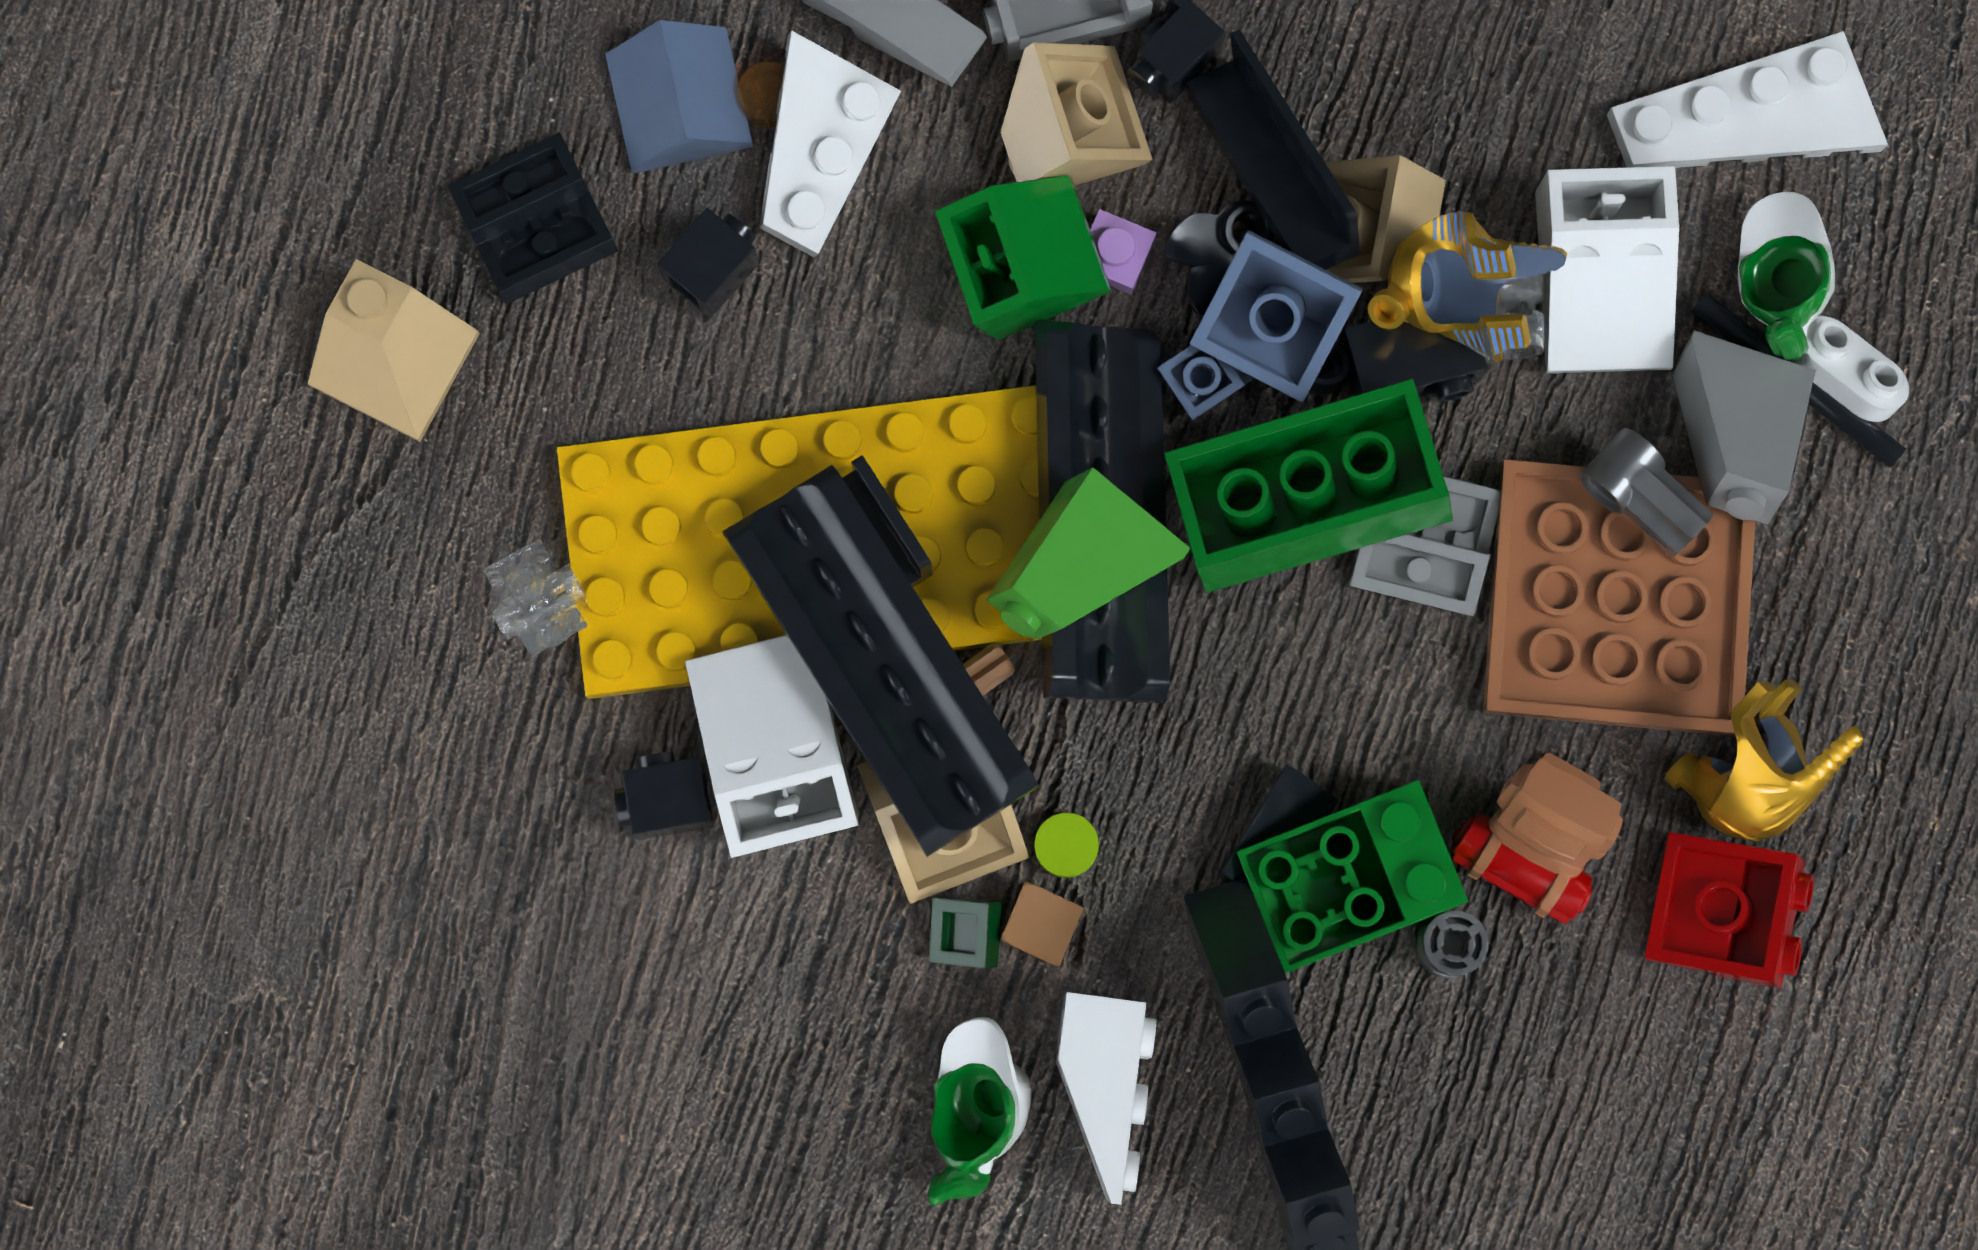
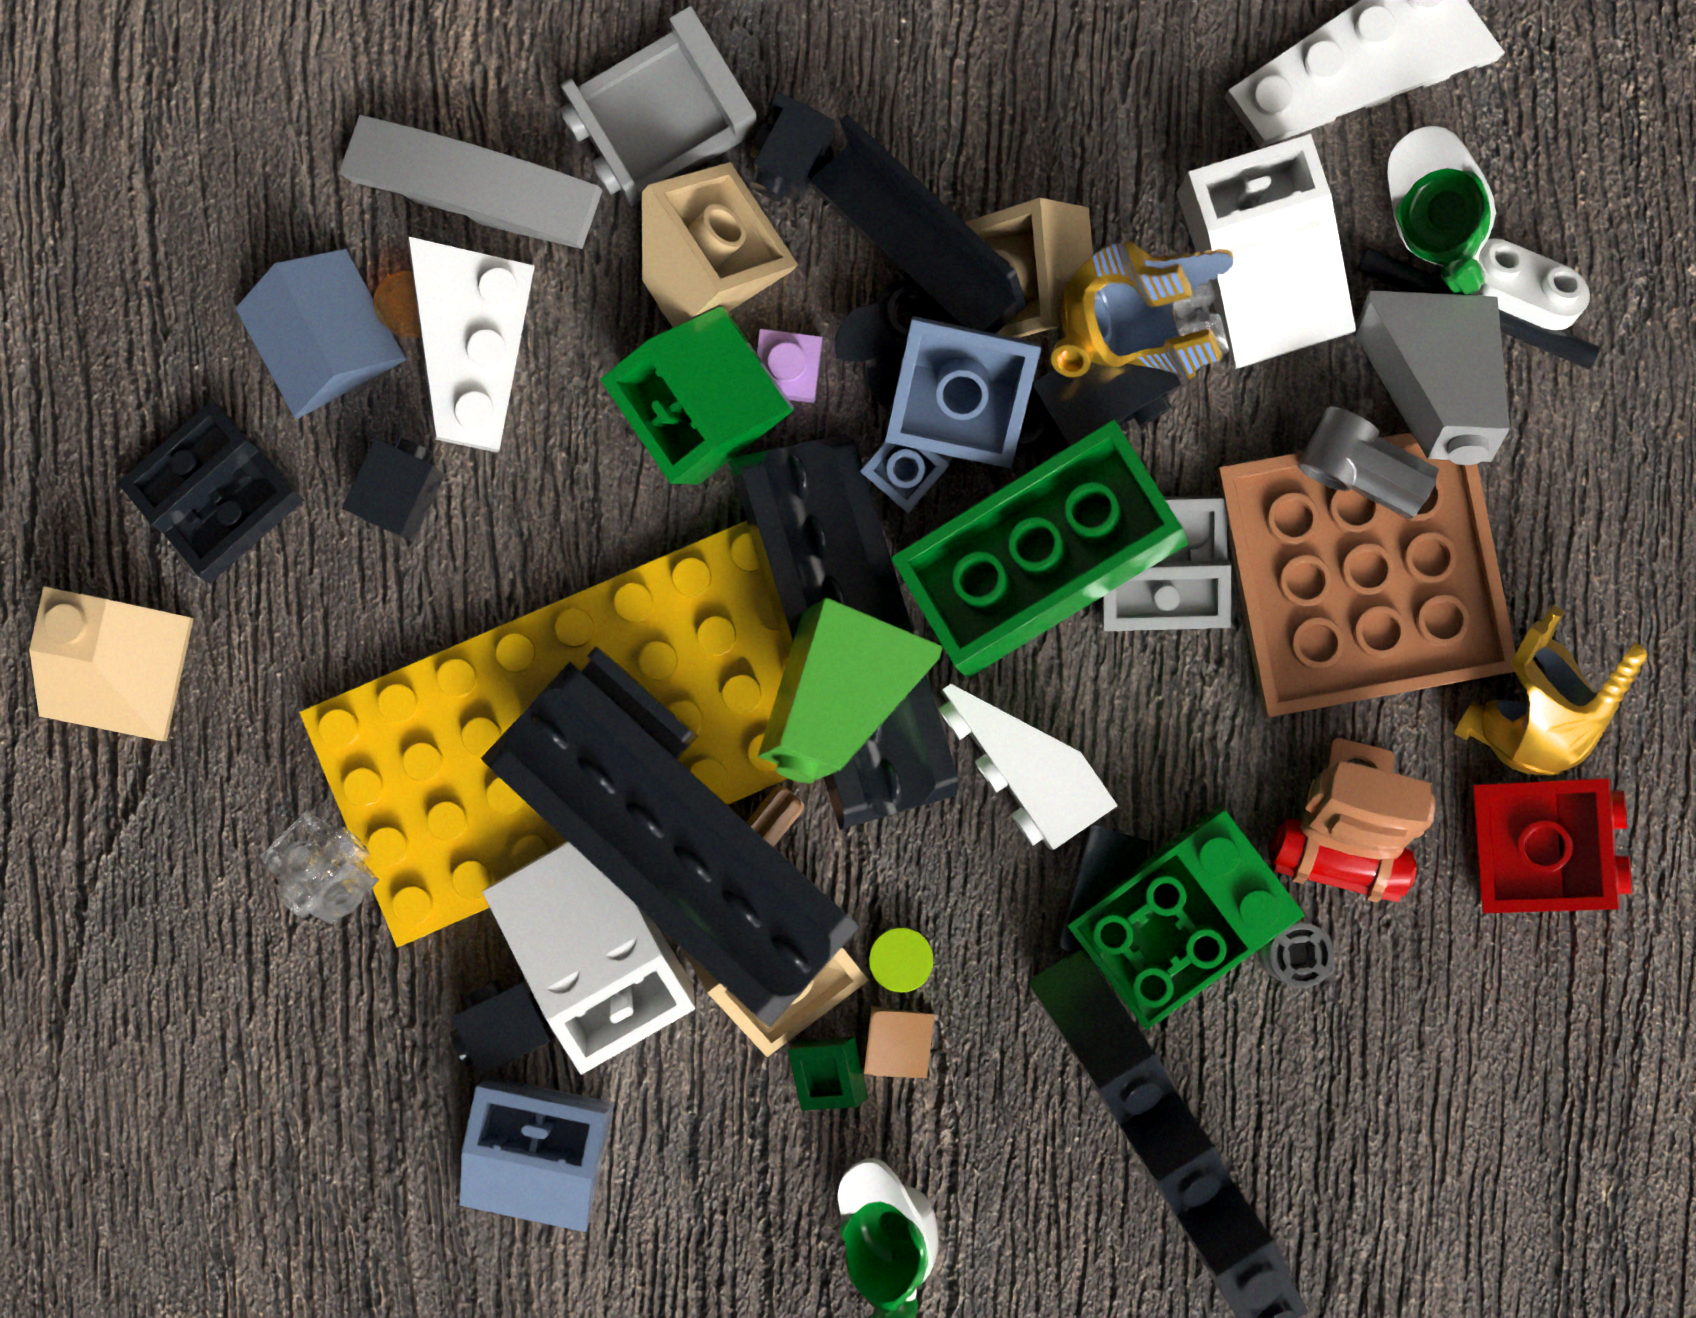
camera: 15 degrees left, 5 degrees up
(660, 929) = (533, 1153): none -> sand blue slope
(1099, 1068) = (992, 1172): white slope -> none
(1251, 701) = (1043, 775): none -> white slope

